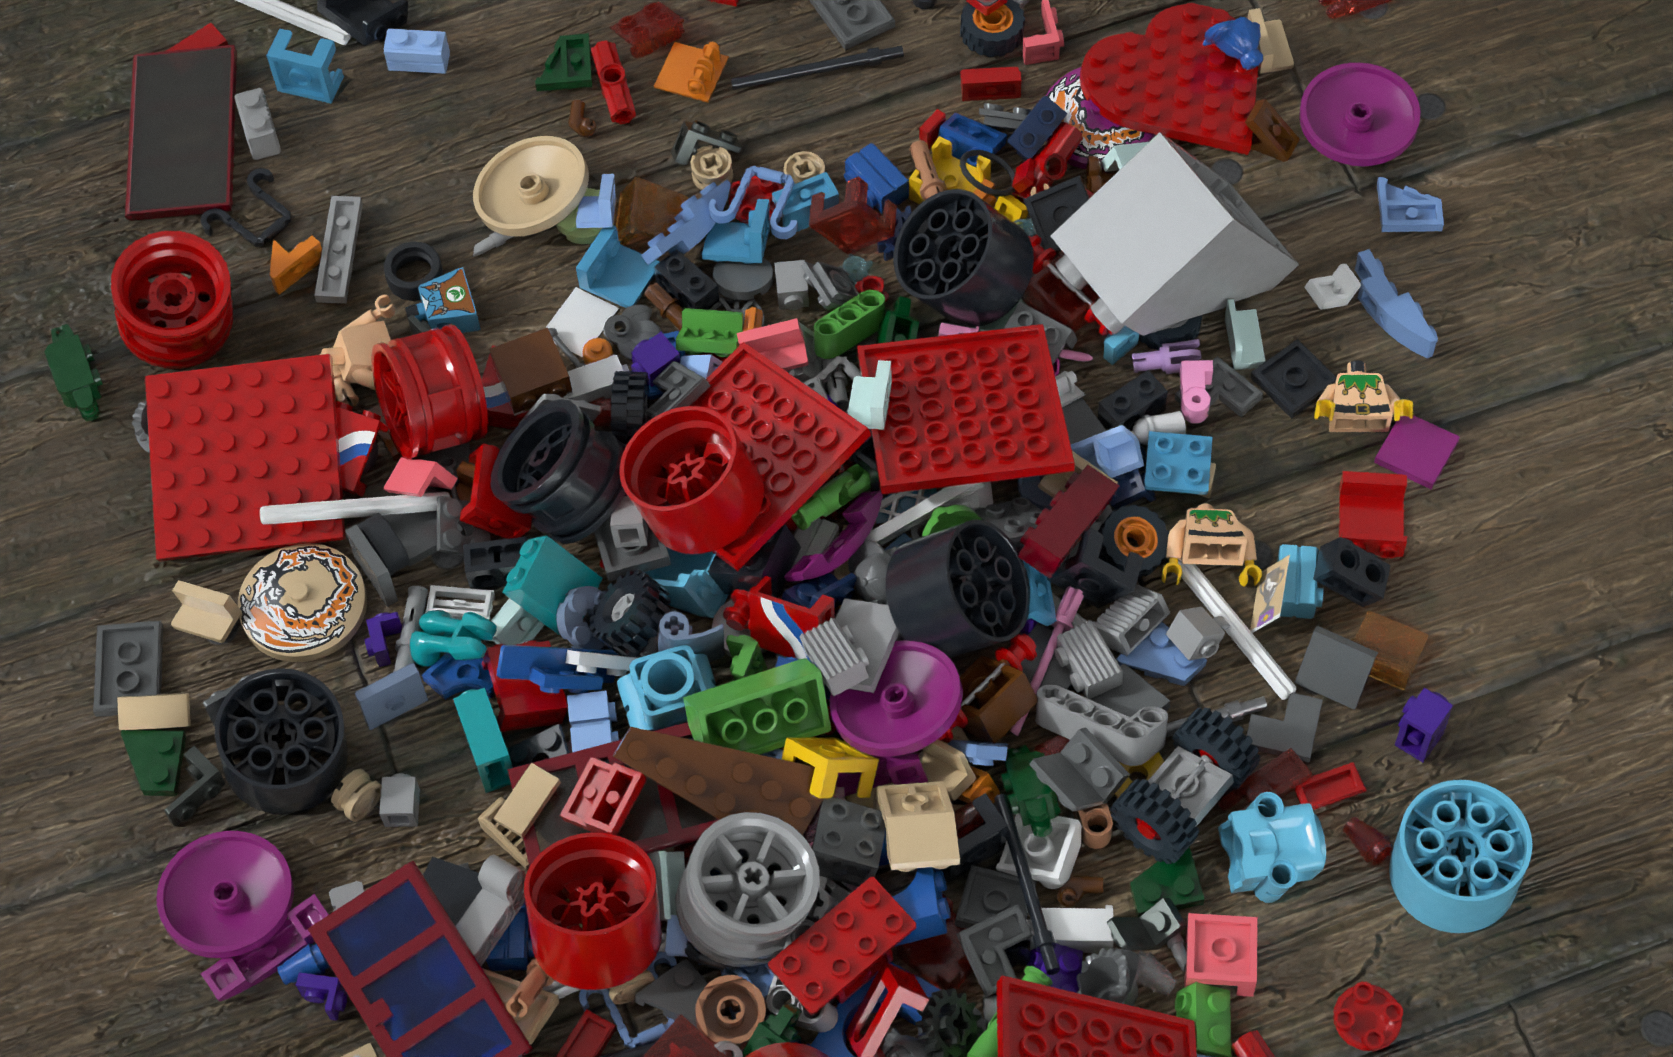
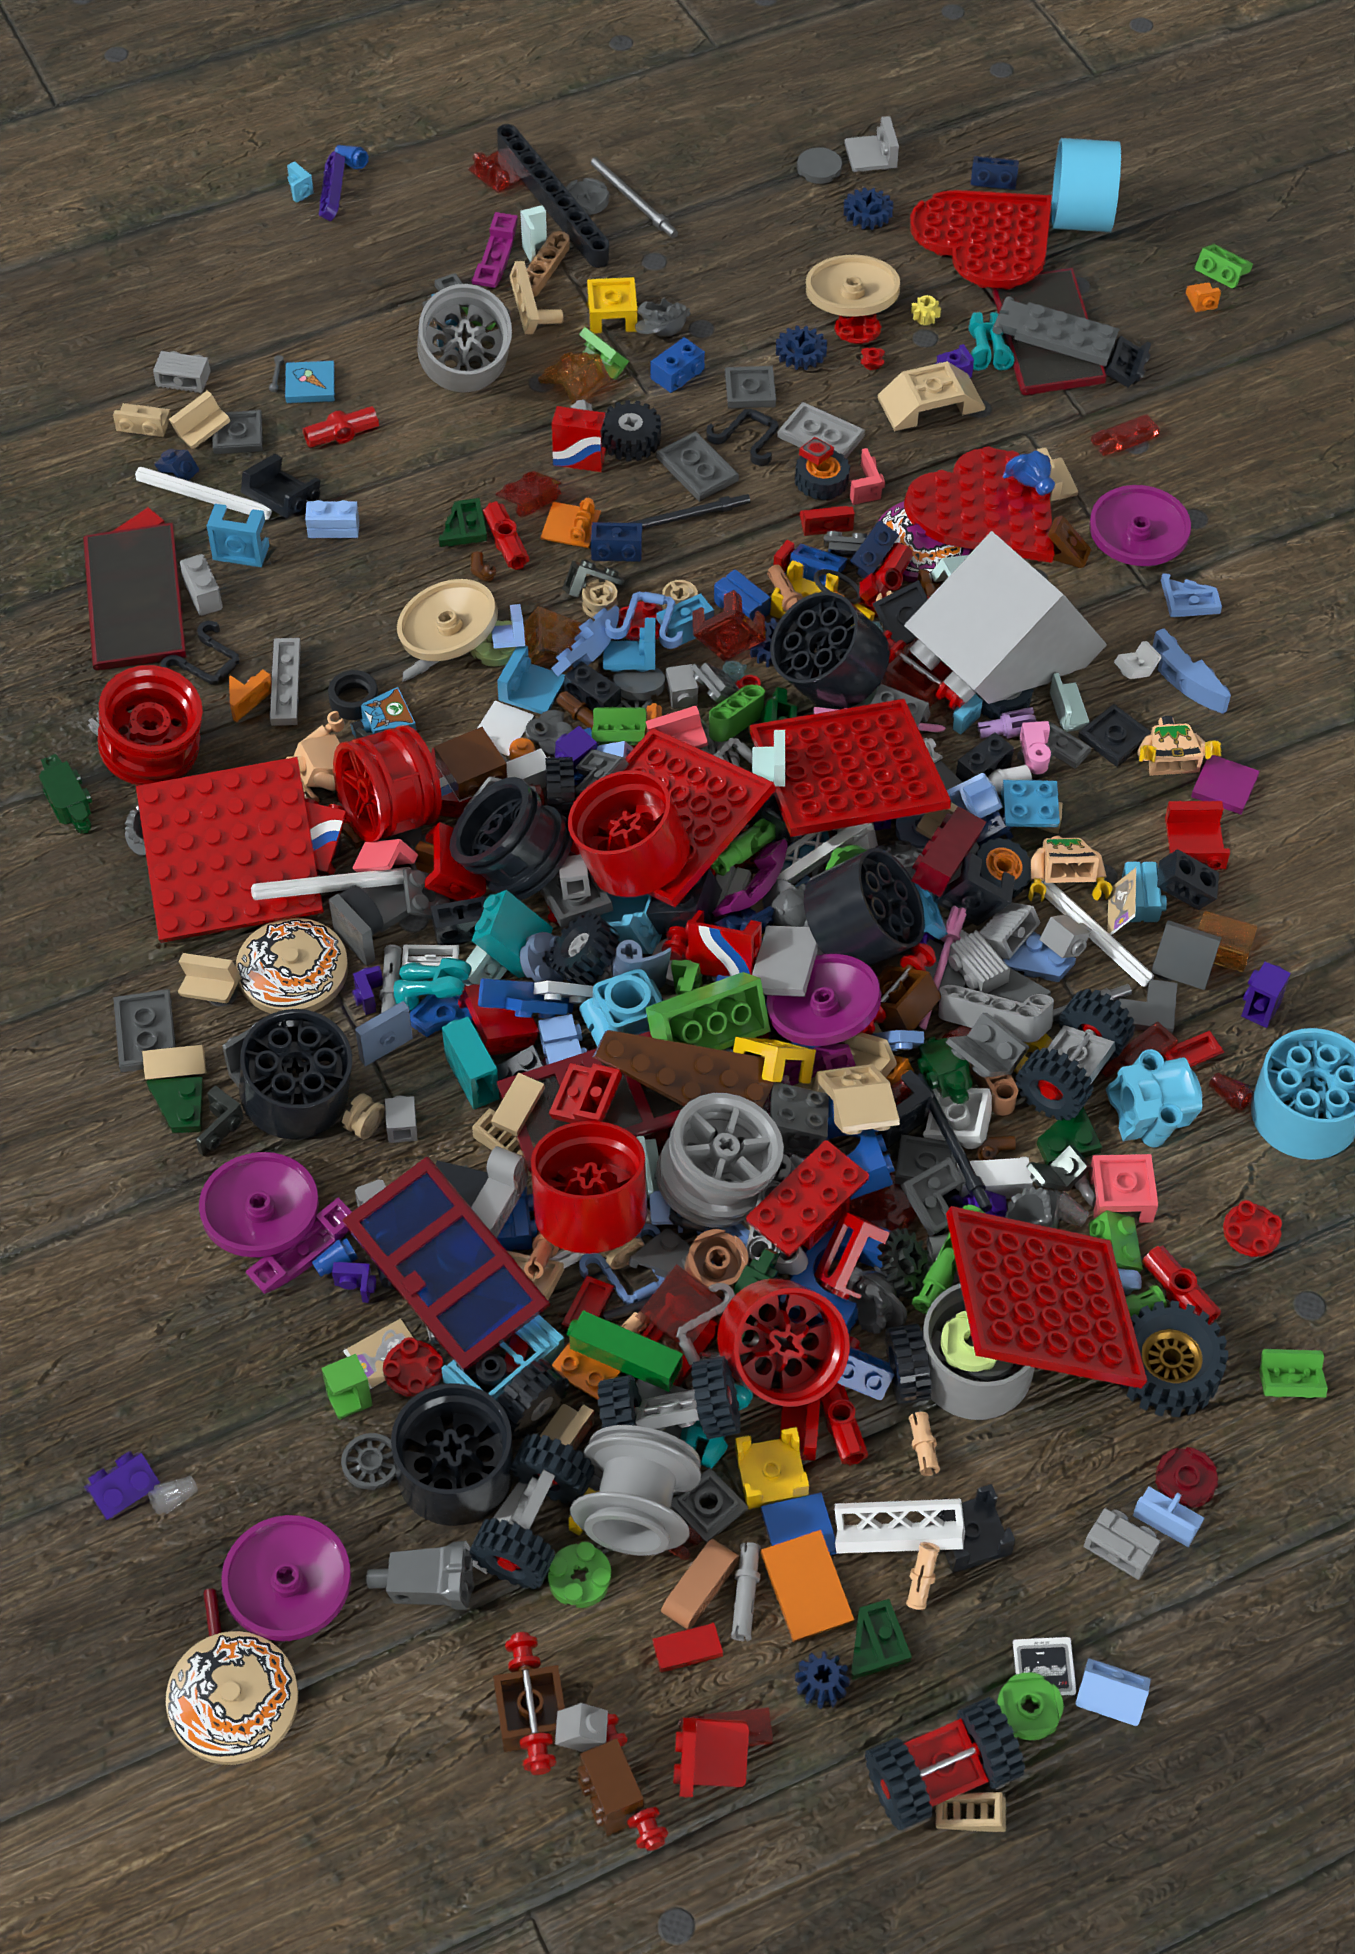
camera: 10 degrees left, 5 degrees down
(740, 97) = (616, 541): none -> dark blue bracket
(833, 653) = (770, 965): light grey brick -> none

